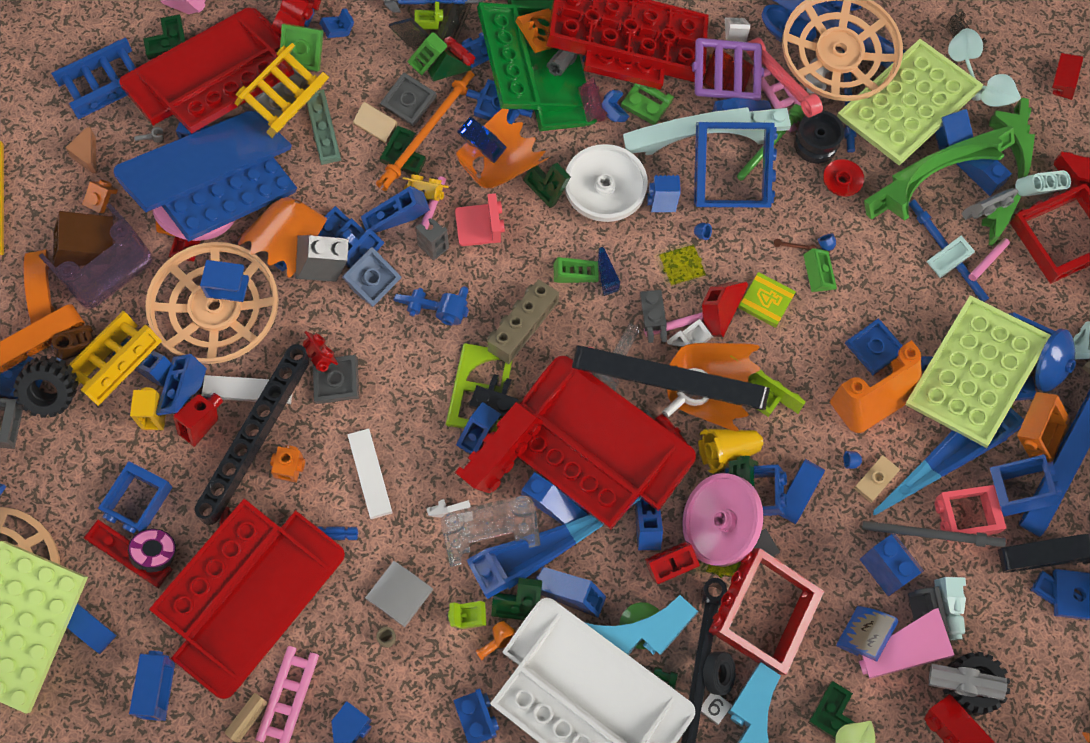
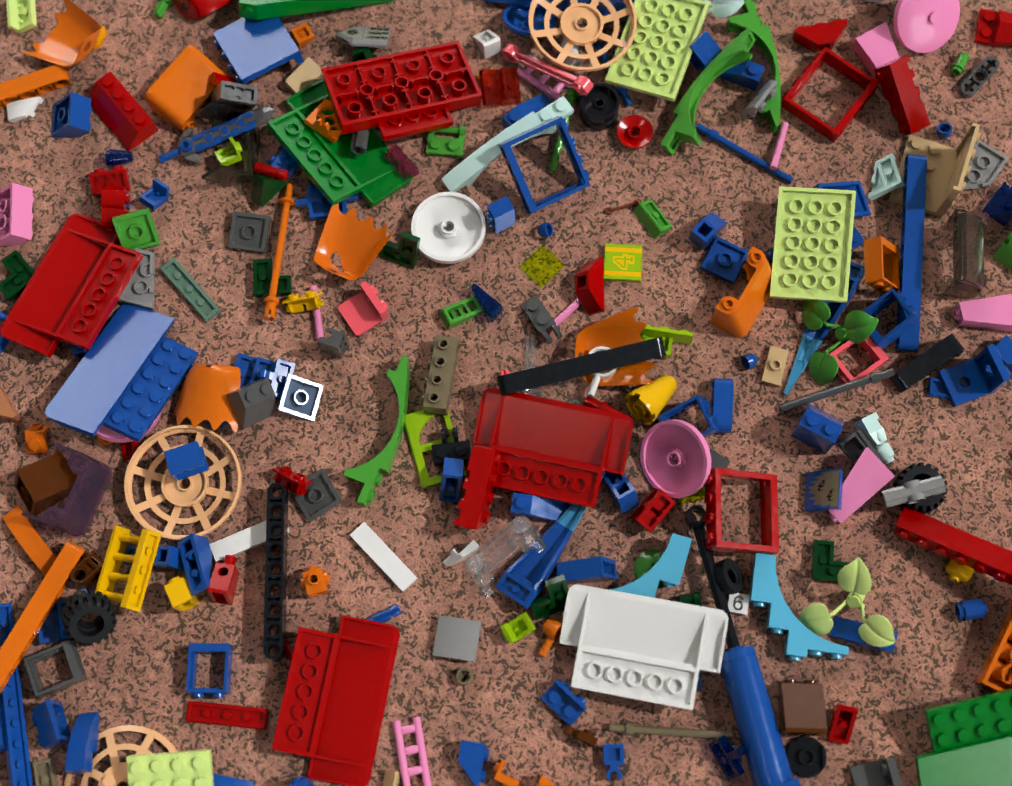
camera: 20 degrees left, 5 degrees up
(151, 550) = (246, 702): tile -> none
(156, 130) = (51, 366): light grey hand -> none
(289, 109) = (161, 273): yellow fence -> none
(375, 122) = (232, 265): tan slope -> none
(397, 210) = (290, 333): blue slope -> none
(401, 383) = (371, 472): none -> bright green slope
(435, 45) = (246, 185): bright green slope -> none
(449, 309) = (378, 394): blue piece -> none
(482, 139) = (329, 239): clear blue slope -> none
(613, 109) = (421, 160): blue bracket -> none
(693, 334) = (581, 319): white slope -> none
(717, 92) = (500, 106): medium lavender bar -> none
(743, 468) = (672, 410): dark green bracket -> none
(827, 242) = (647, 191): blue hinge -> none
(871, 307) = (707, 230): none -> blue slope
(950, 256) = (748, 158): light aqua tile -> none
(987, 476) = (856, 328): none -> bright green plant
(1043, 183) = (792, 63): light aqua beam -> none
(1055, 361) = (867, 207): blue dish -> none

